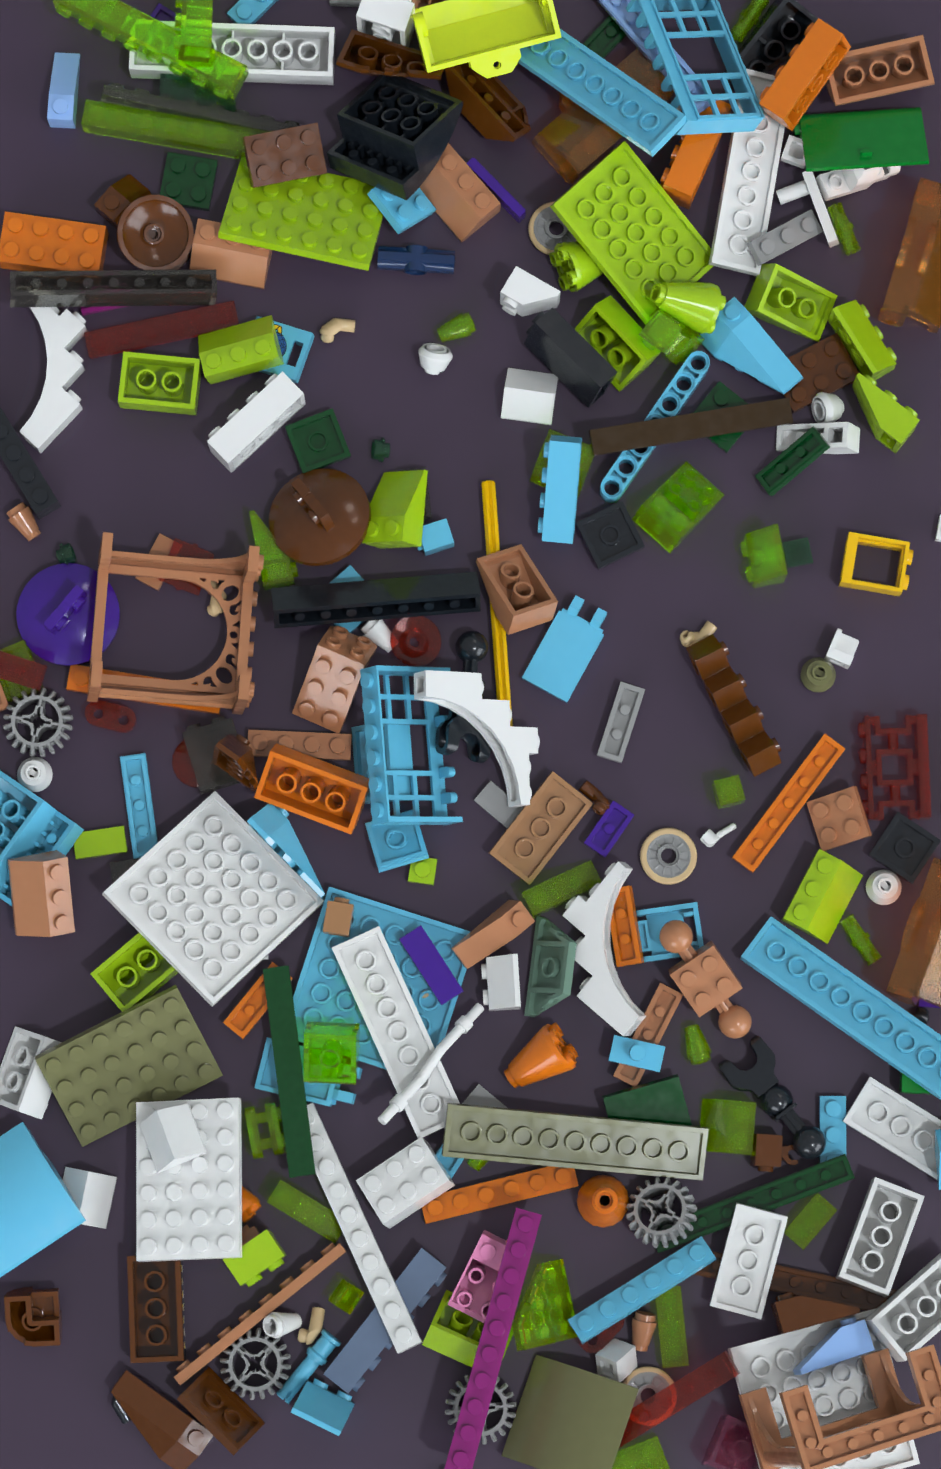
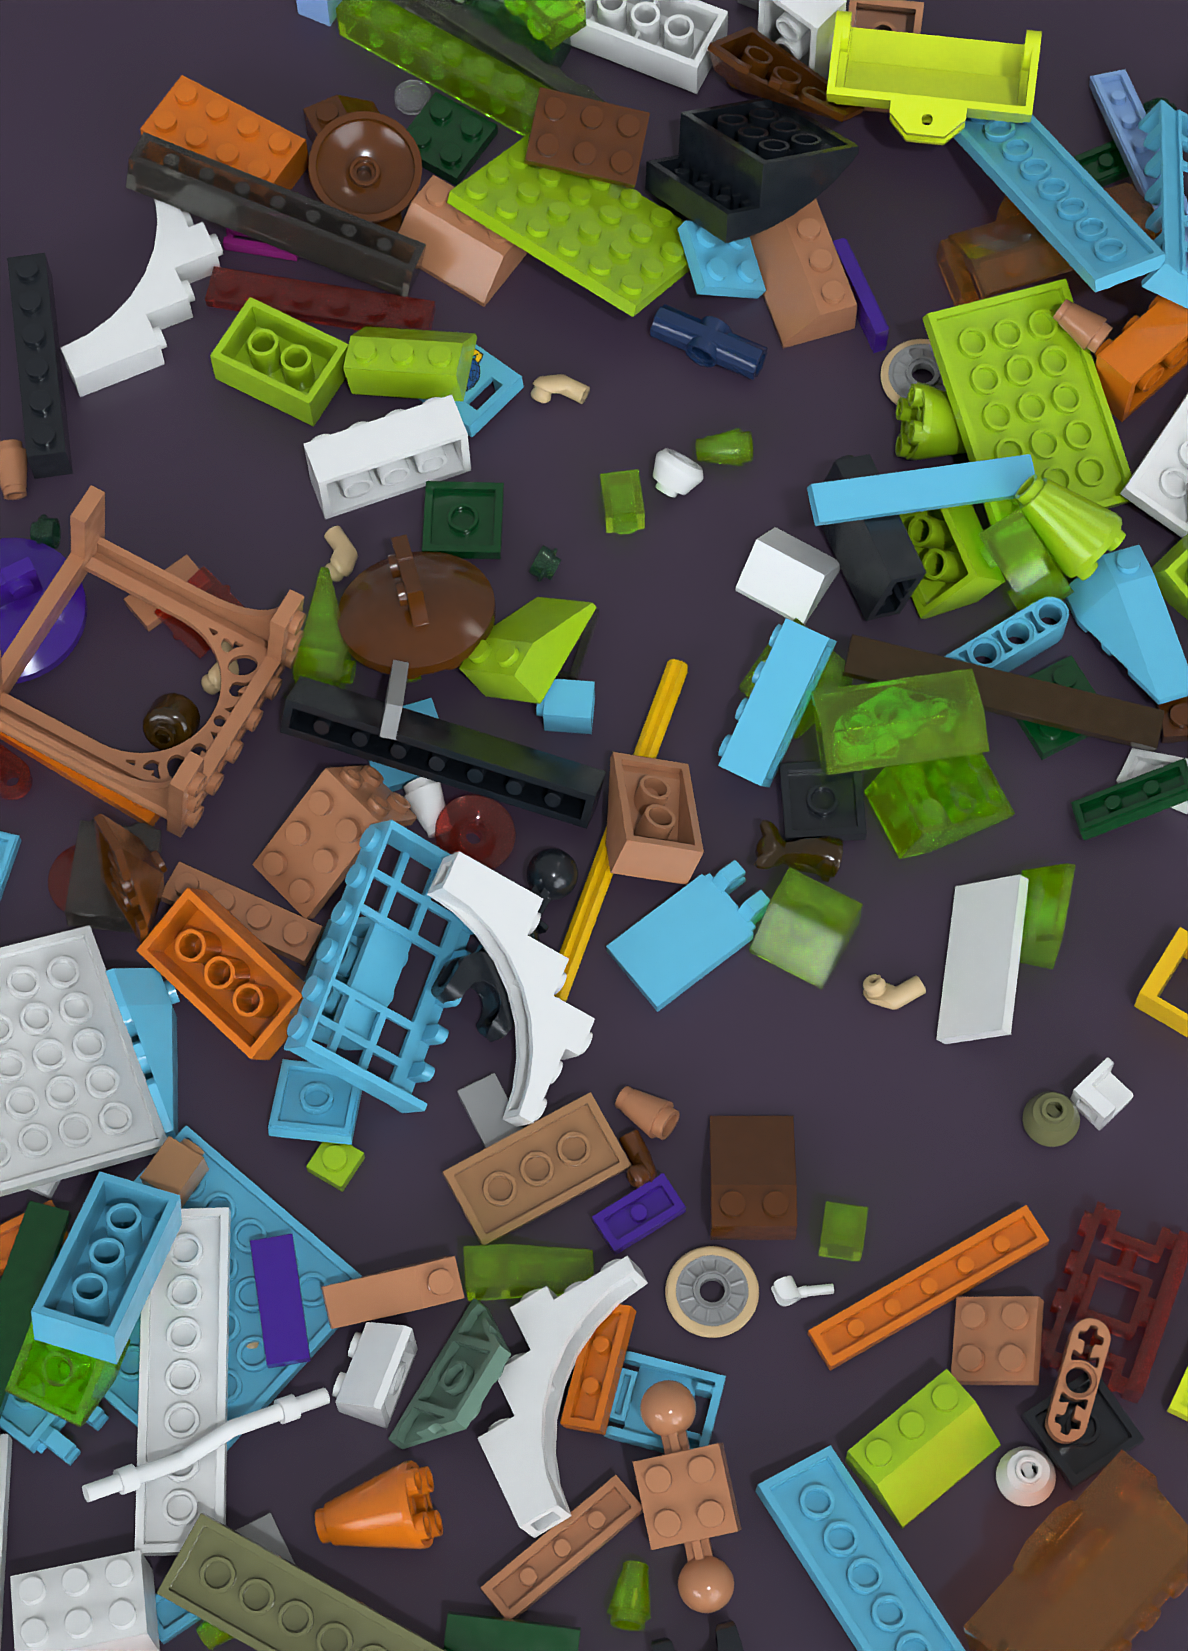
camera: 25 degrees right, 15 degrees down
(152, 159) = (411, 96): none -> clear piece
(204, 646) = (171, 721): none -> dark brown head
(255, 492) = (344, 554): none -> tan arm
(334, 992) = (107, 1267): none -> medium azure brick
(337, 583) = (394, 699): none -> light grey tile
(410, 391) = (622, 501): none -> clear neon green brick
(488, 104) = (893, 177): reddish brown wedge -> none
(527, 294) = (841, 427): white slope -> none
(588, 767) = (650, 1113): none -> nougat cone
(593, 320) = (918, 490): none -> medium azure tile
(621, 722) = (724, 1067): light grey plate -> none
(622, 572) = (807, 855): none -> dark brown animal
(633, 619) = (806, 927): none -> clear neon green slope
(636, 1053) = (531, 1567): medium azure tile -> none
(639, 474) = (899, 721): none -> clear neon green slope
(648, 169) = (1083, 325): none -> nougat cone
(663, 779) = (753, 1178): none -> reddish brown slope
(737, 712) = (905, 1120): reddish brown brick -> none
(743, 597) = (982, 960): none -> white tile
(797, 553) = (1090, 932): clear green plate -> none
(860, 939) = (957, 1542): clear neon green pin -> none
(899, 804) = (1057, 1408): none -> nougat beam

